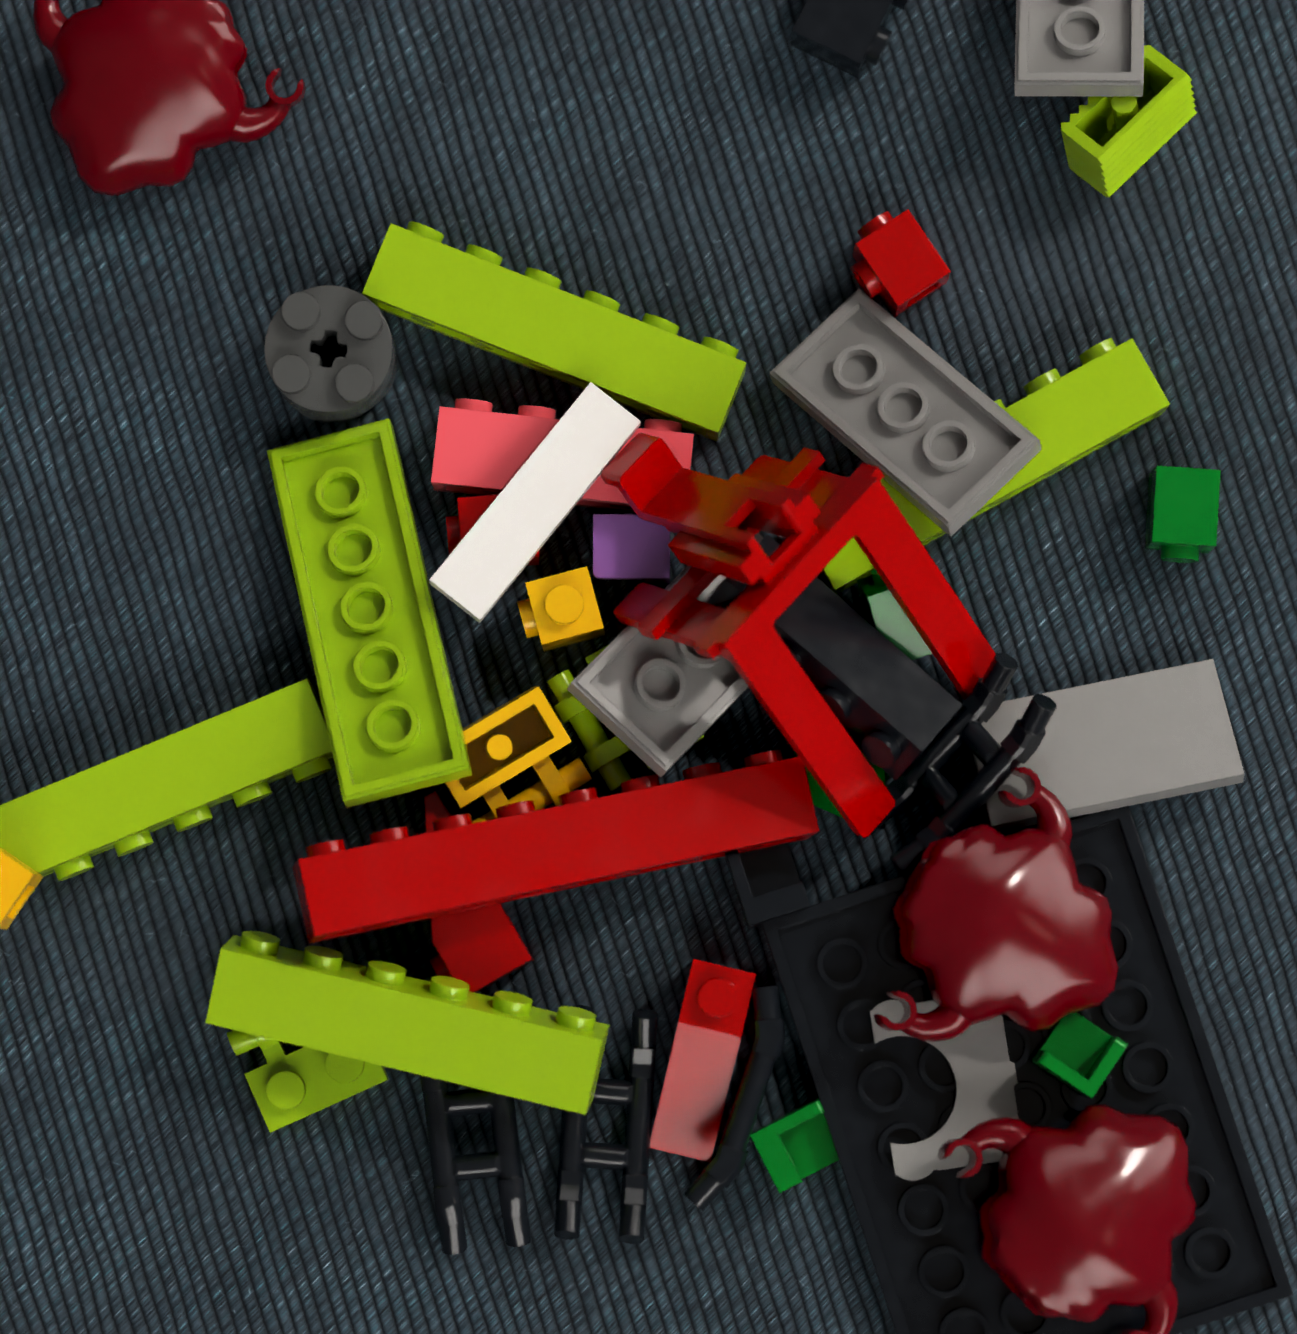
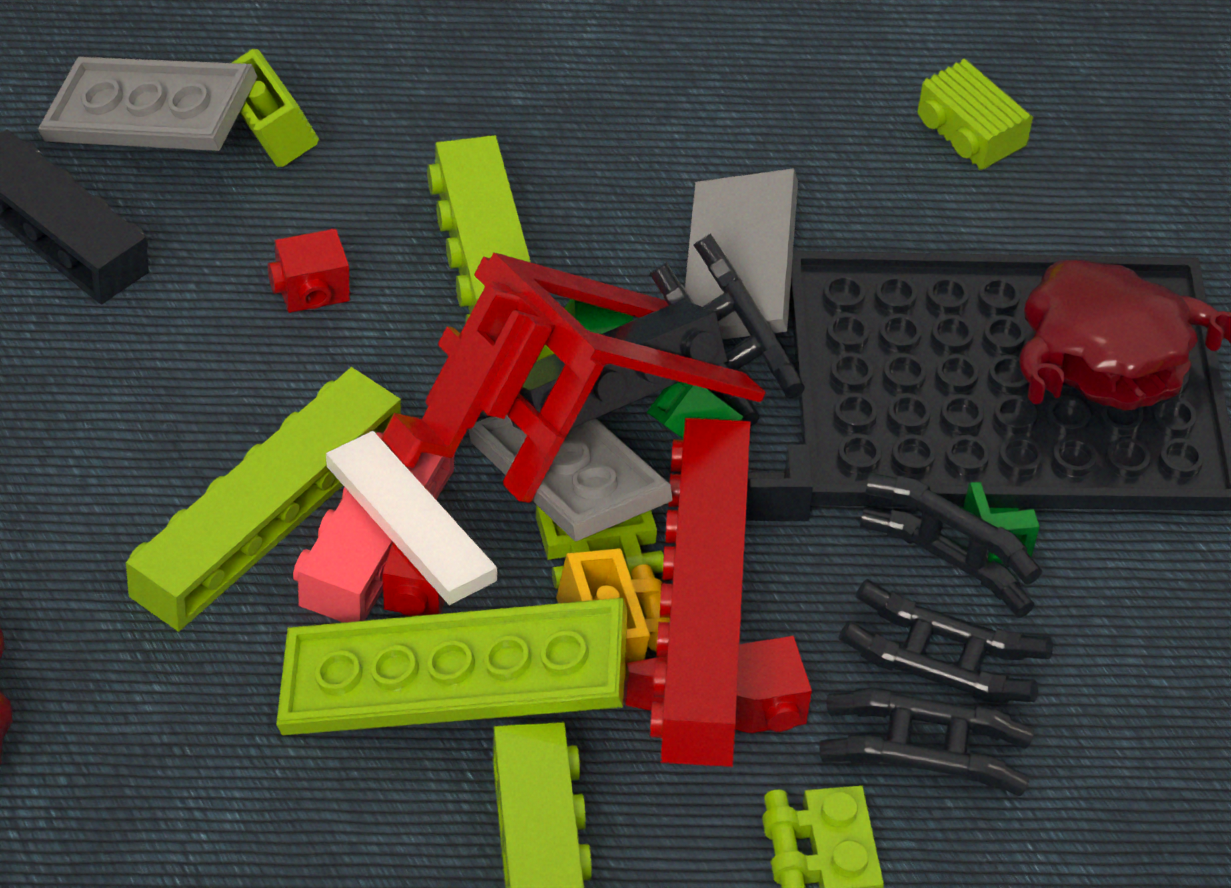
camera: 80 degrees left, 35 degrees down
(308, 325) = (215, 645): dark grey brick -> none
(407, 1021) = (821, 728): lime brick -> none
(561, 609) = (505, 538): yellow brick -> none
(630, 549) = (472, 483): medium lavender panel -> none
(702, 1060) = (900, 555): slope -> none
(905, 411) = (424, 287): light grey tile -> none
(983, 1090) = (947, 385): light grey piece -> none
(1004, 926) = (864, 322): dark red piece -> none
(1079, 1054) = (985, 315): green panel -> none
(1182, 512) = (577, 165): green brick -> none

